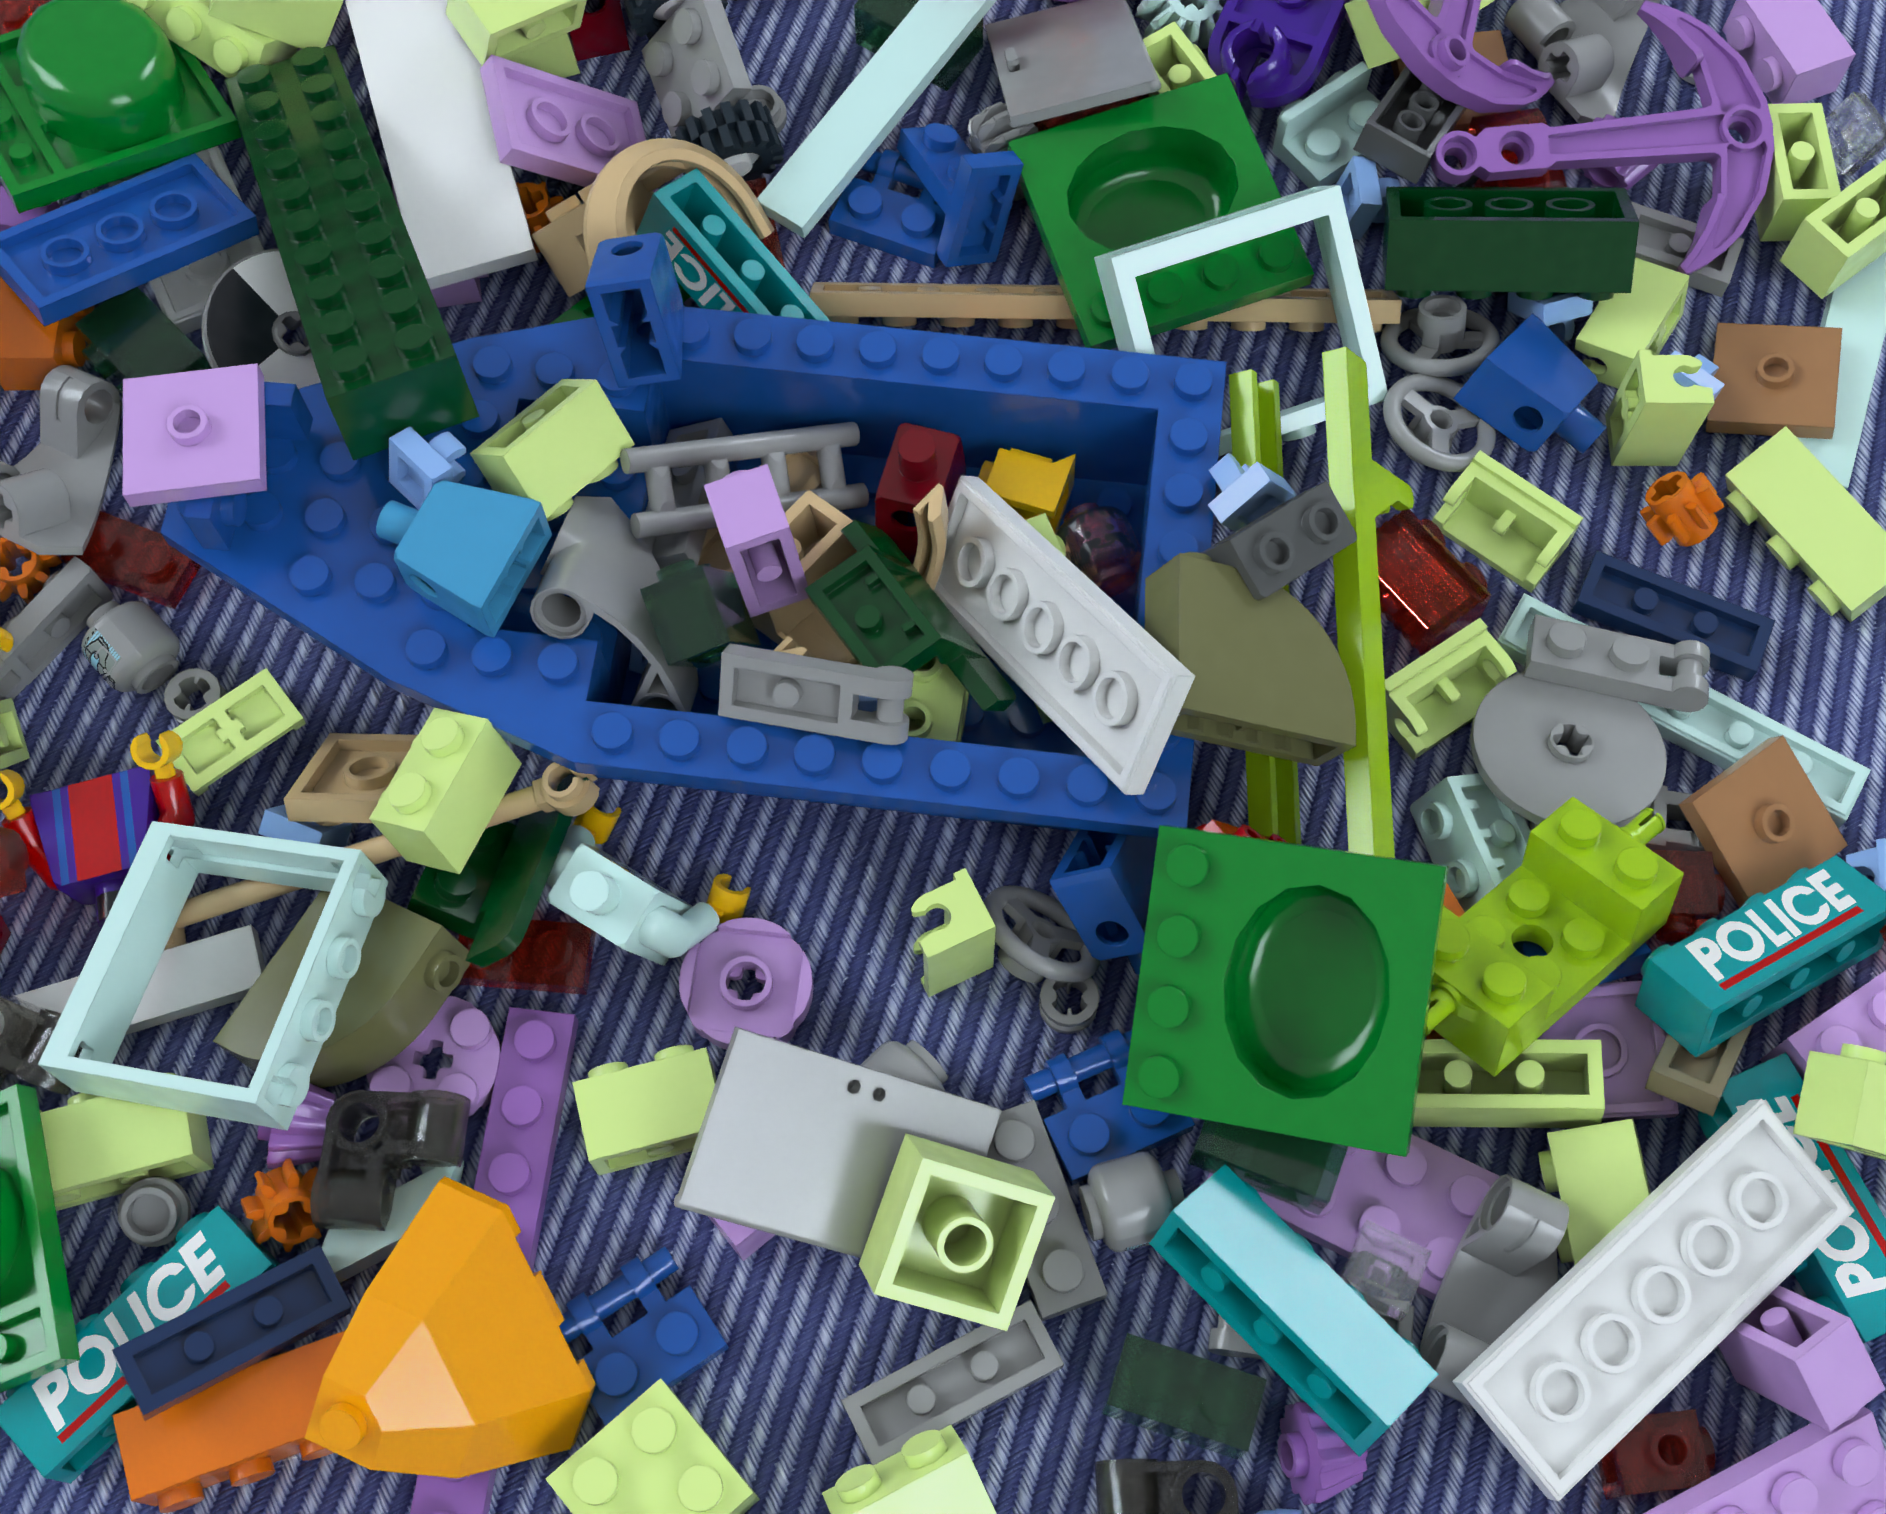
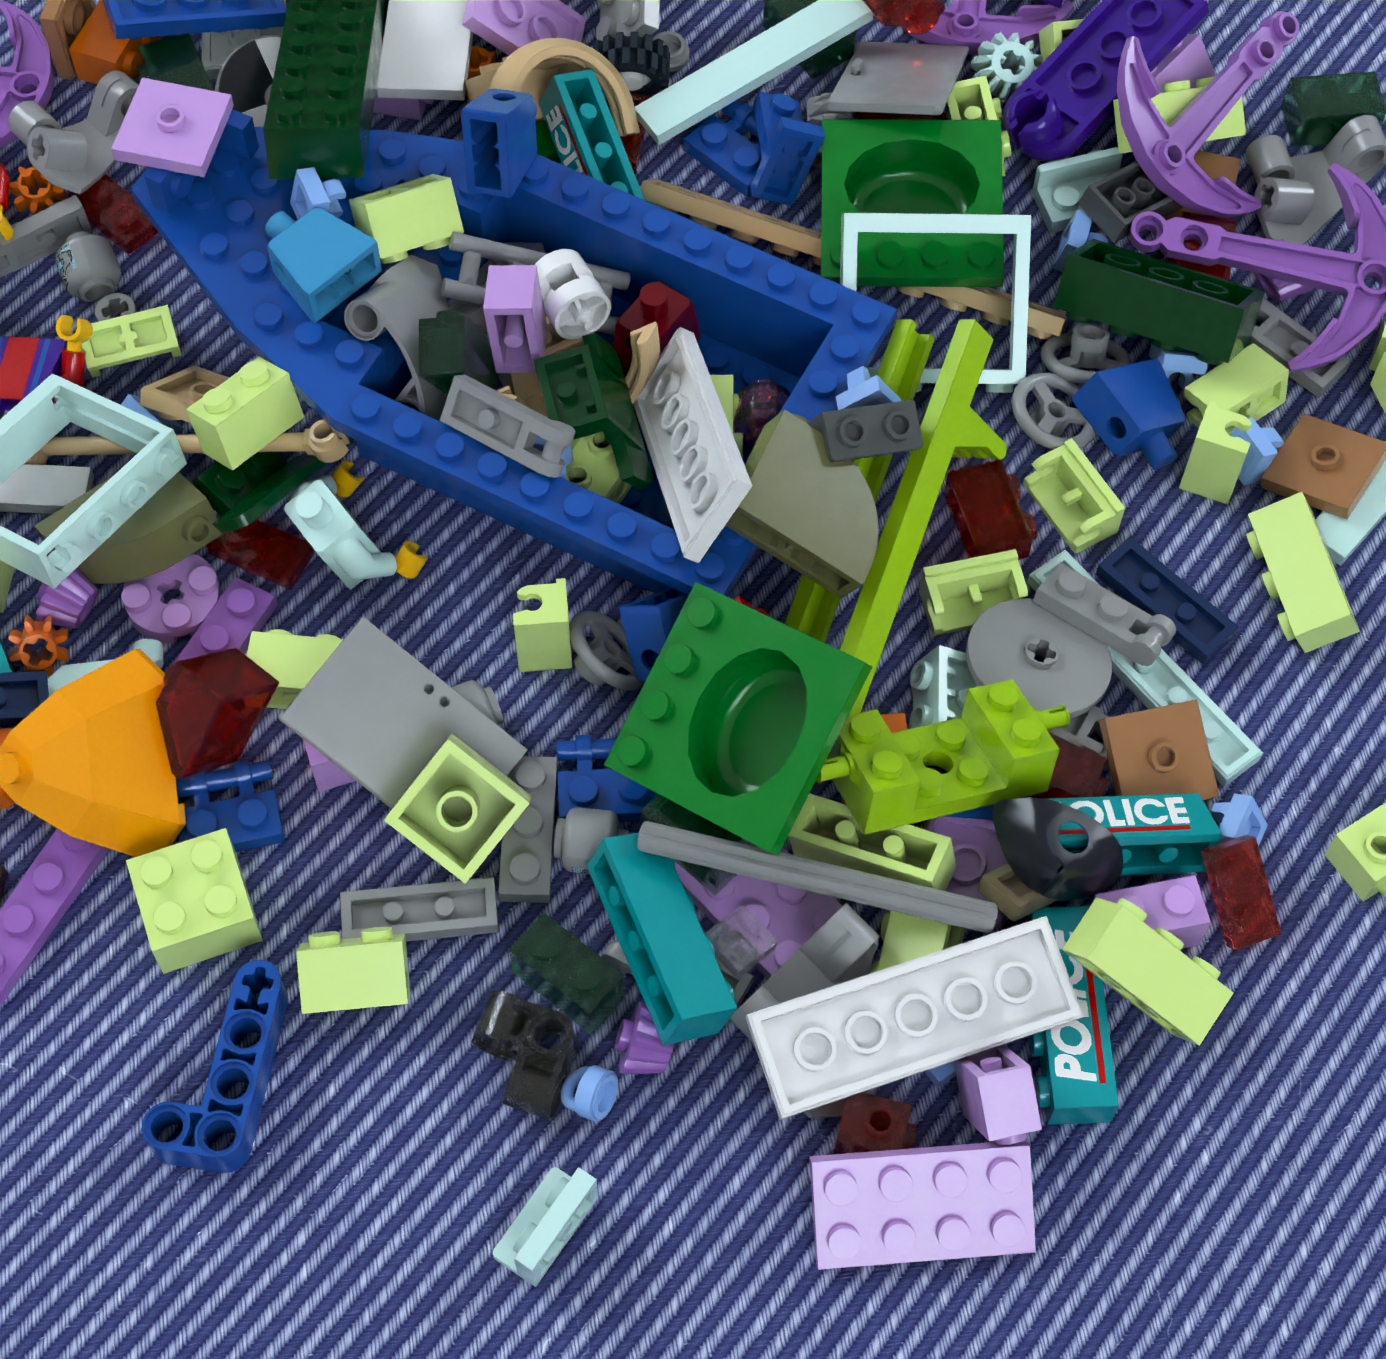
camera: 20 degrees right, 5 degrees down
(359, 1179) = (91, 638): clear smoke piece -> none
(570, 1218) = (211, 709): none -> clear red slope
(723, 957) = (407, 592): lavender plate -> none
(813, 483) = (571, 294): none -> white wheel
(1031, 483) = (736, 354): yellow window -> none
(1068, 1023) = (603, 717): light grey bush -> none
(1459, 1156) = (817, 877): none -> light grey axle
(1681, 508) = (1207, 529): orange gear -> none
(1706, 1014) = (1032, 848): none -> black piece

